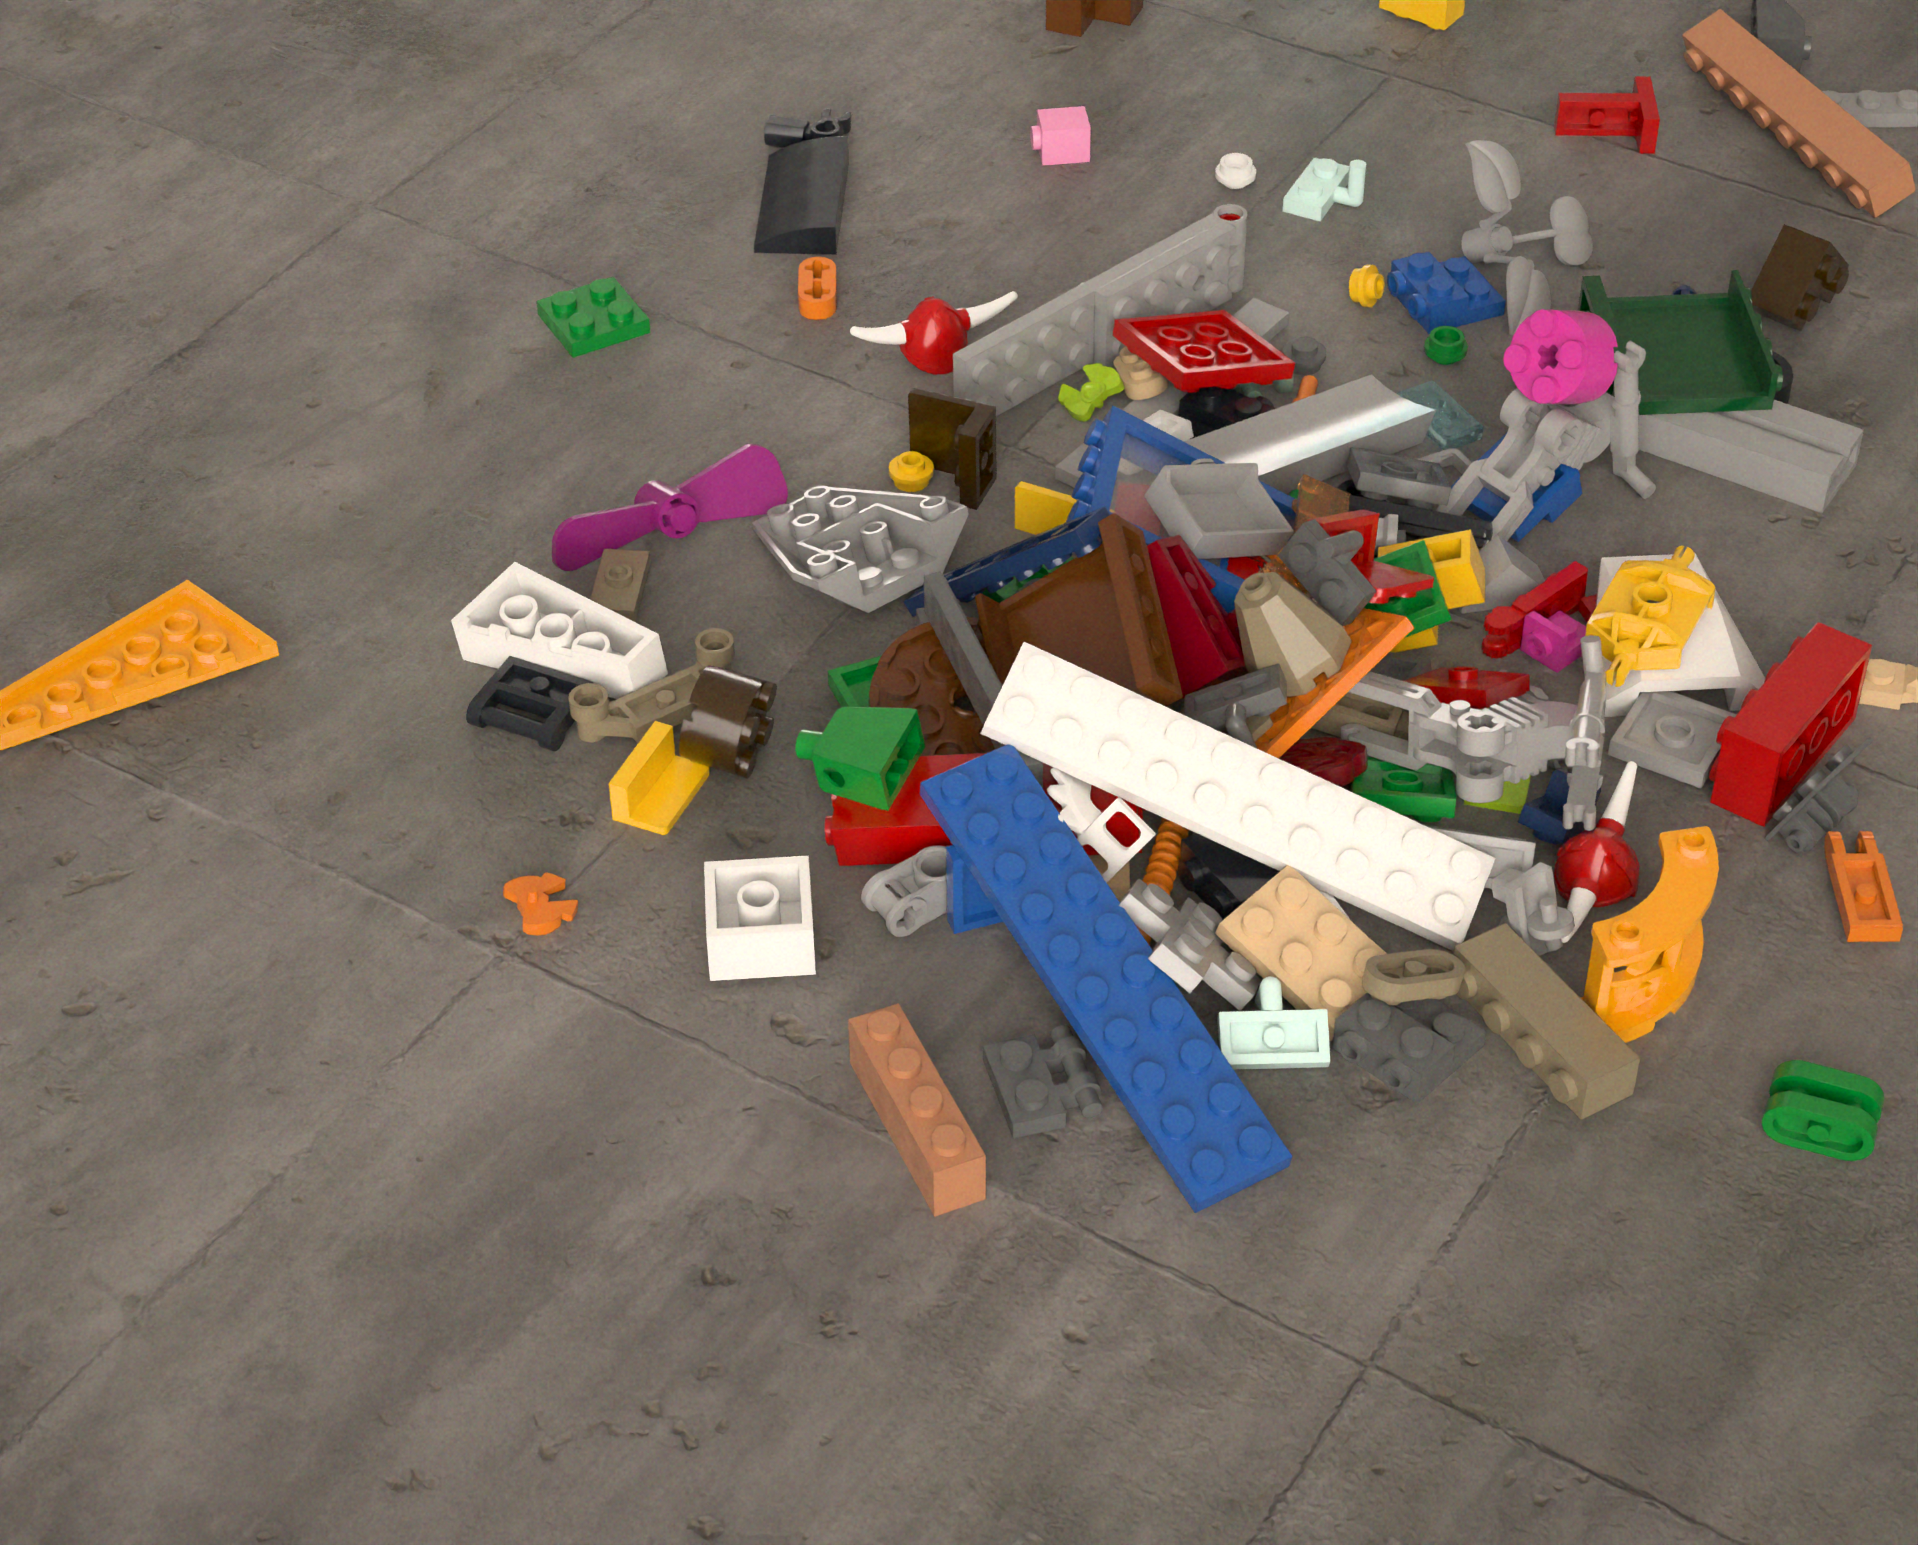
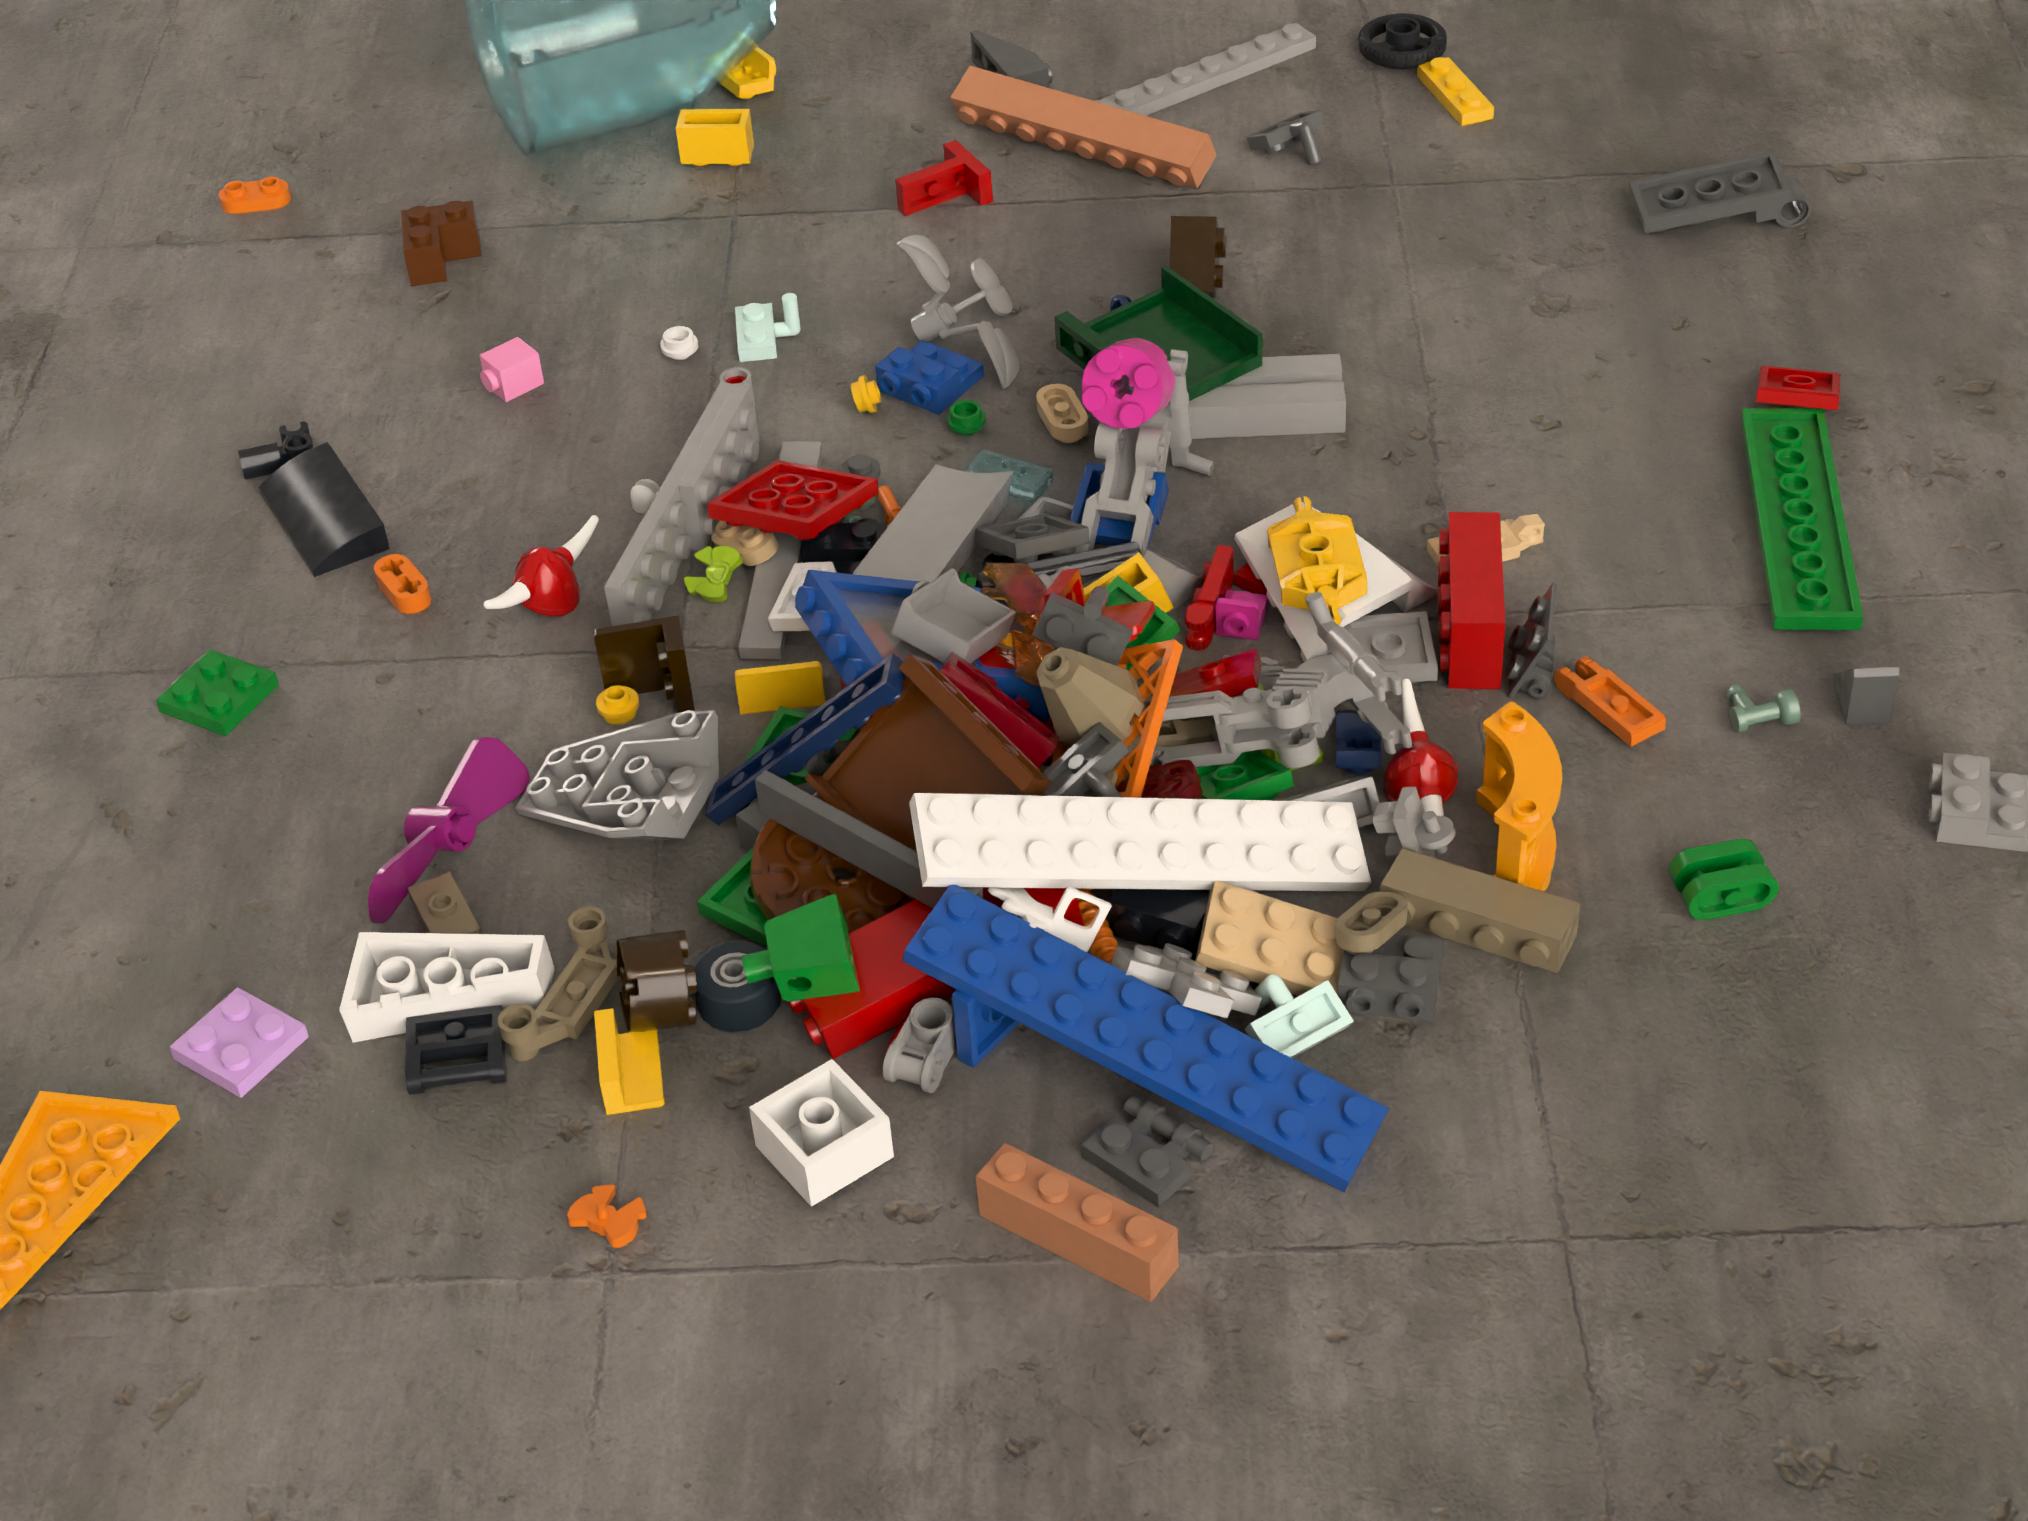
camera: 30 degrees left, 0 degrees up
(373, 615) = (239, 1042): none -> lavender plate
(780, 770) = (724, 993): none -> black wheel

